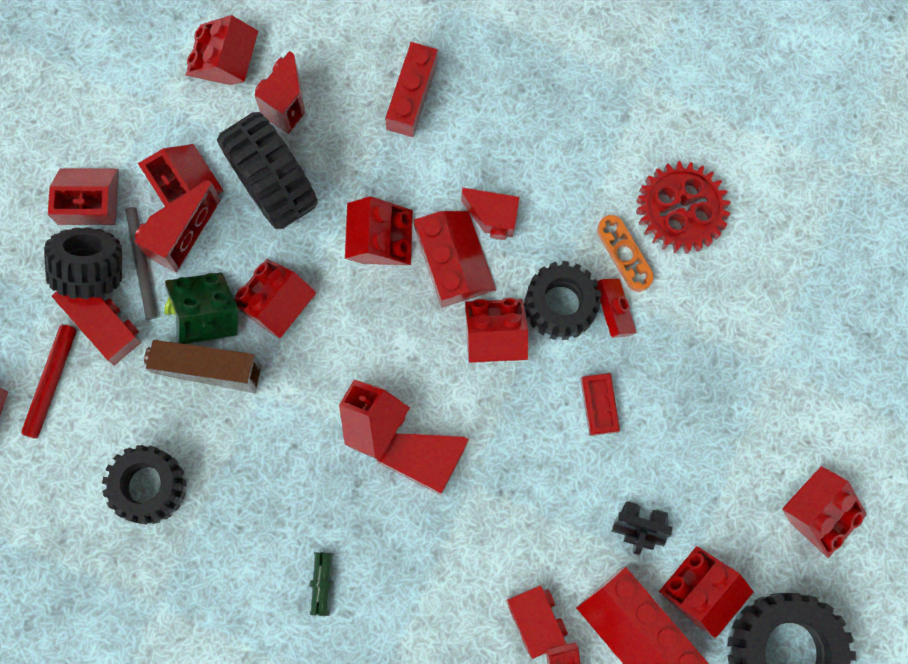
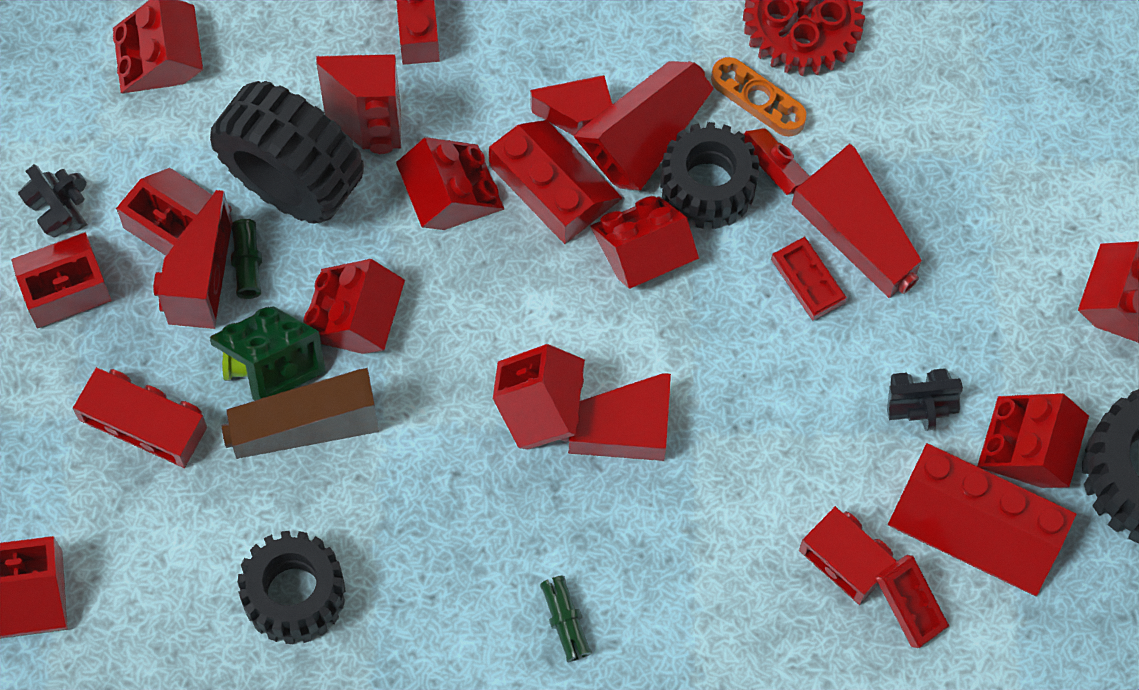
camera: 20 degrees left, 10 degrees down
(48, 381) = (110, 518): red axle -> none
(83, 262) = (99, 350): black tyre -> none
(109, 136) = (45, 188): none -> black hips
(141, 266) = (165, 333): dark grey bar -> none
(217, 231) = (246, 259): none -> dark green pin
(281, 94) = (259, 54): red slope -> none
(343, 151) = (363, 98): none -> red slope
(525, 246) = (635, 130): none -> red slope
(654, 377) = (859, 222): none -> red slope

